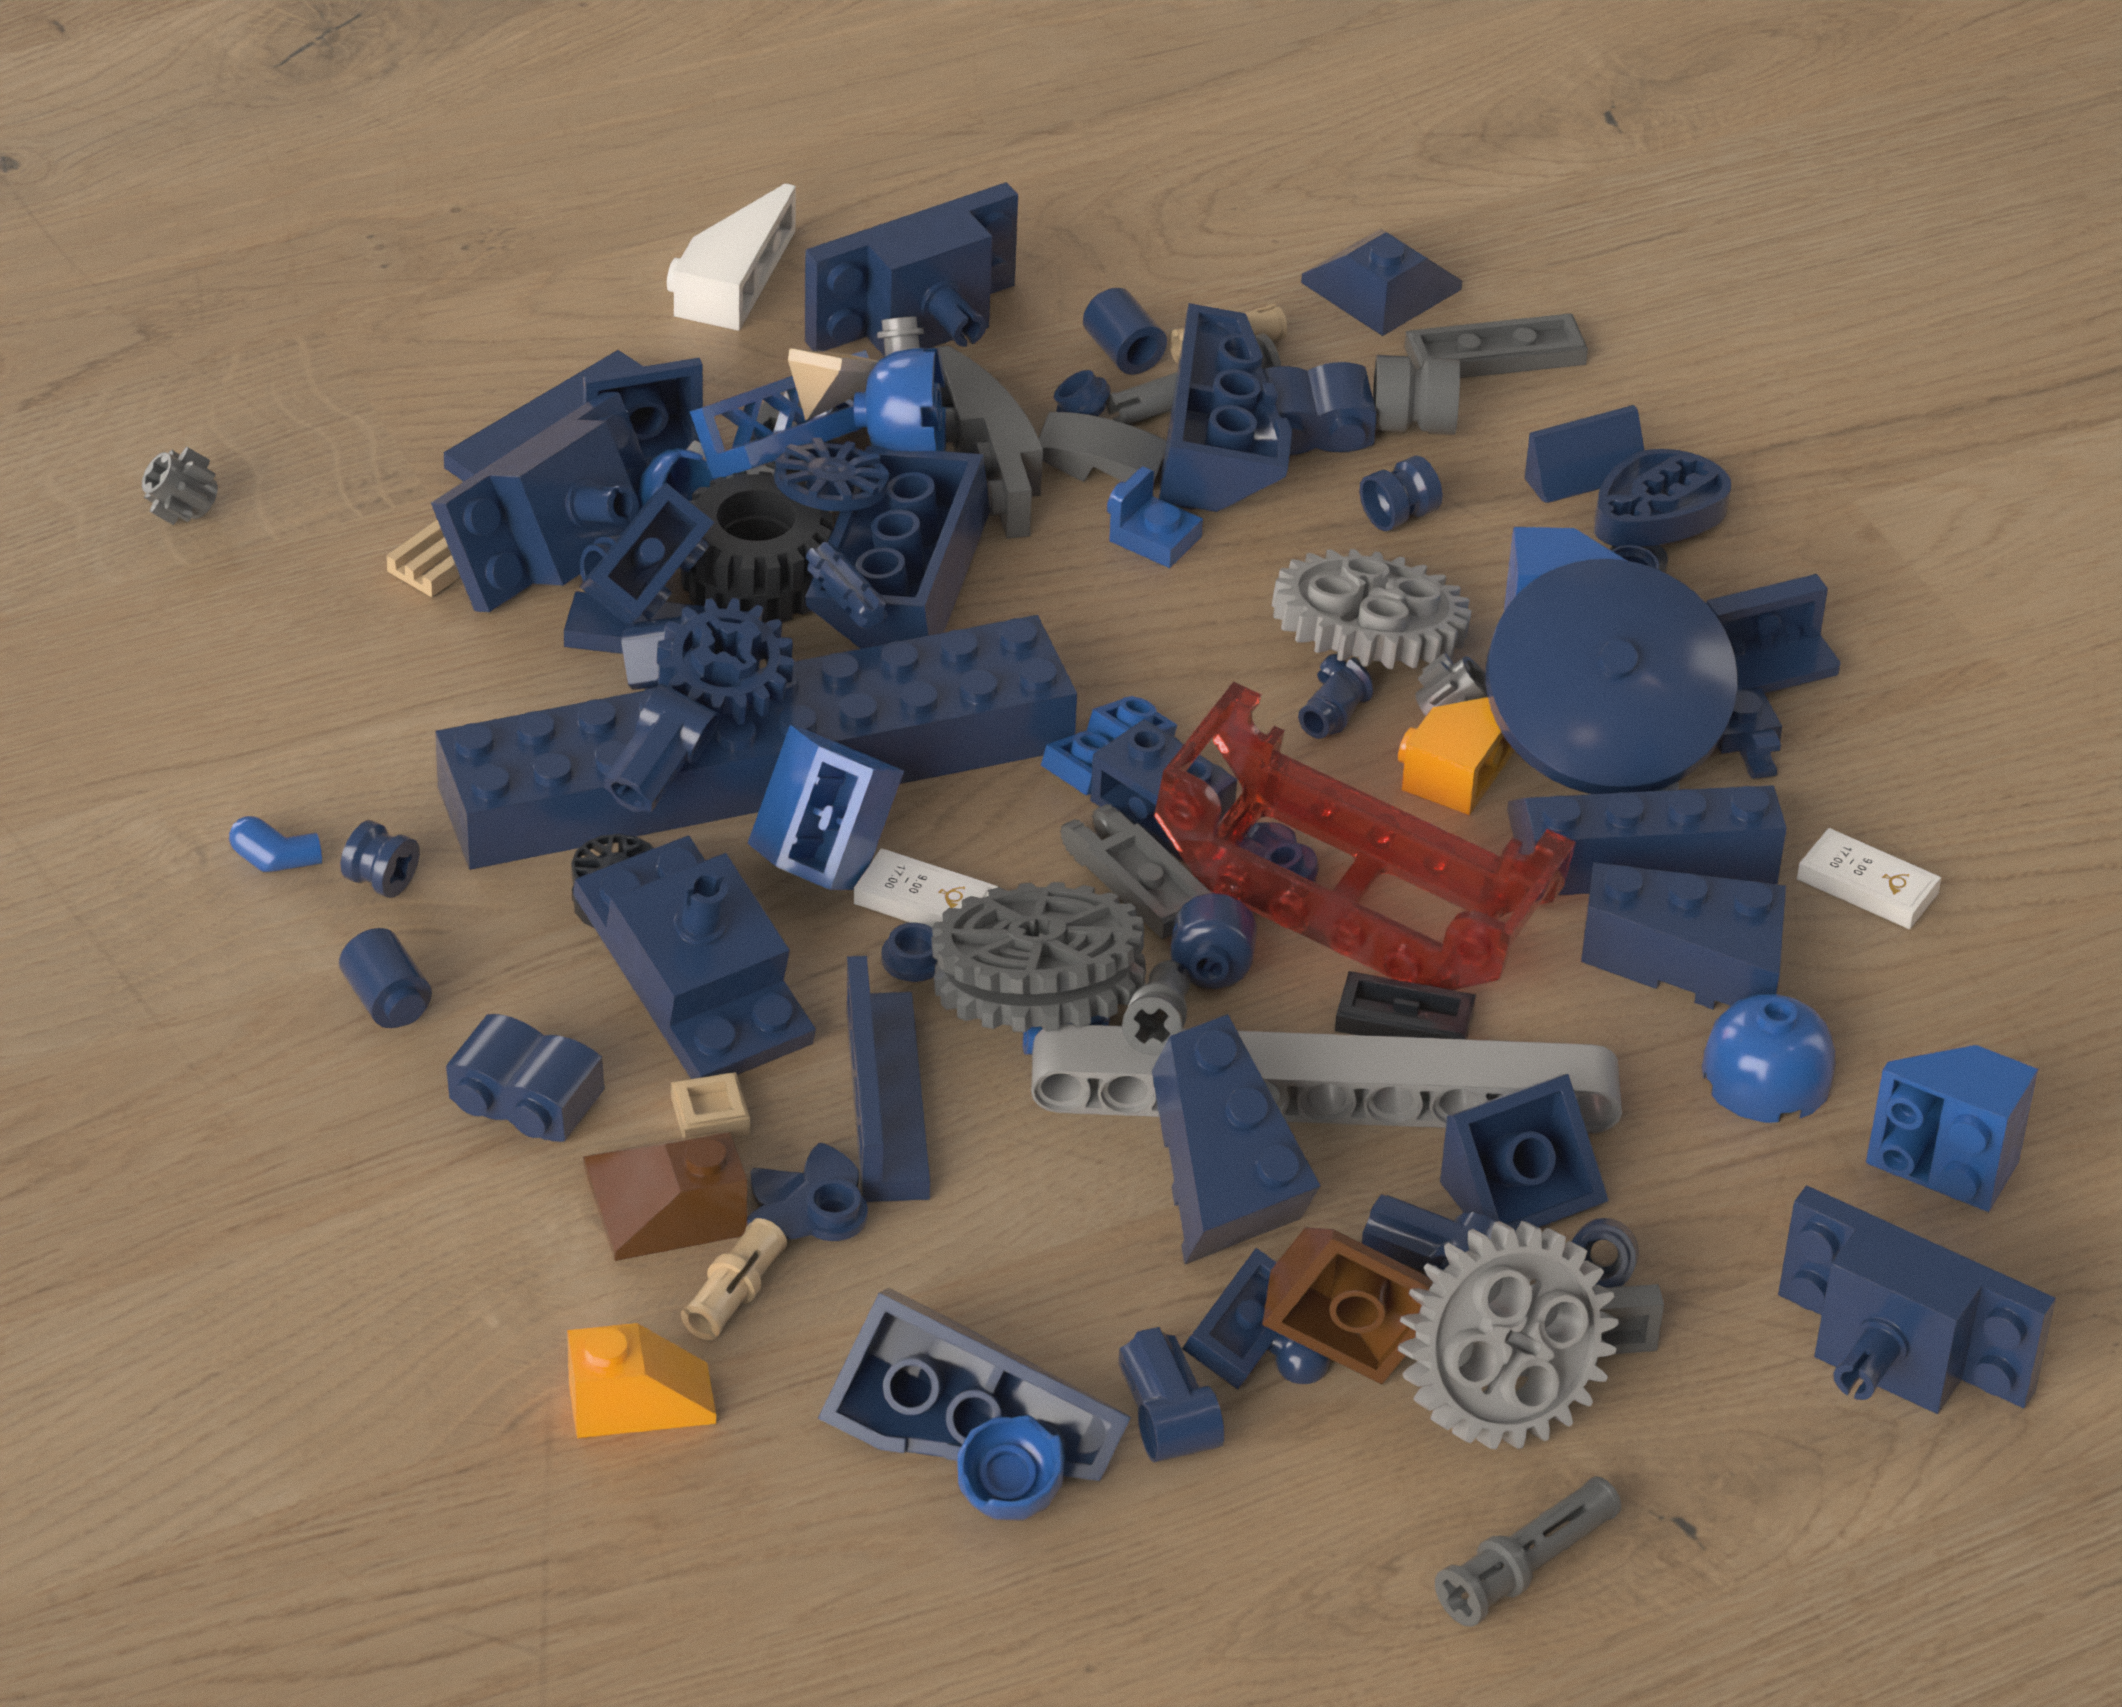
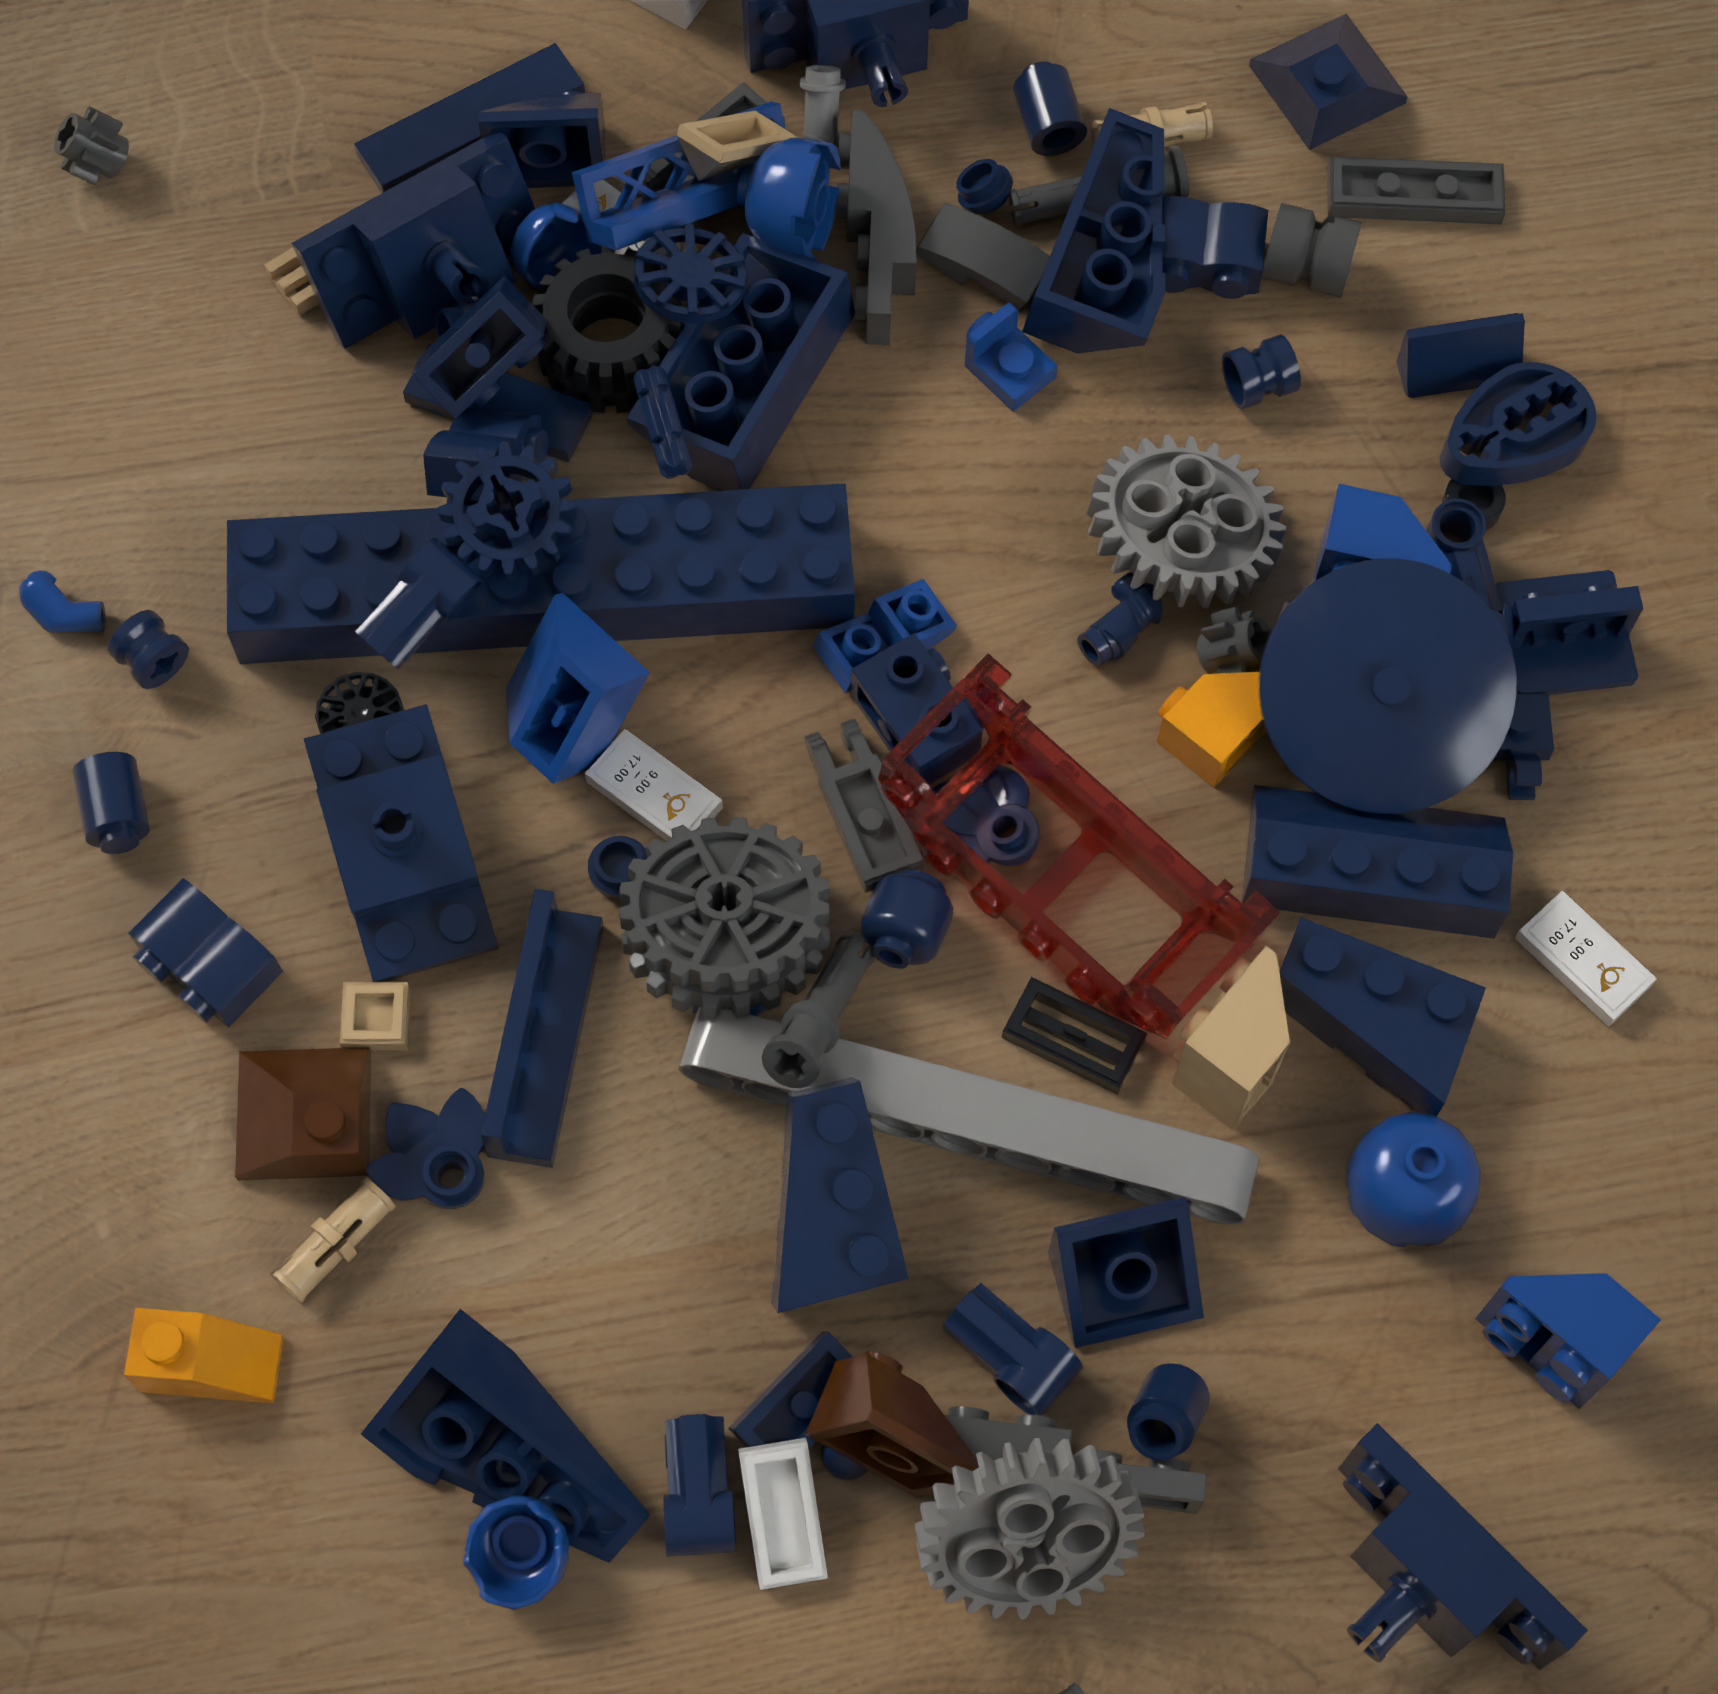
camera: 15 degrees right, 25 degrees up
(1260, 1400) = (783, 1513): none -> white tile
(1565, 966) = (1239, 1045): none -> tan slope

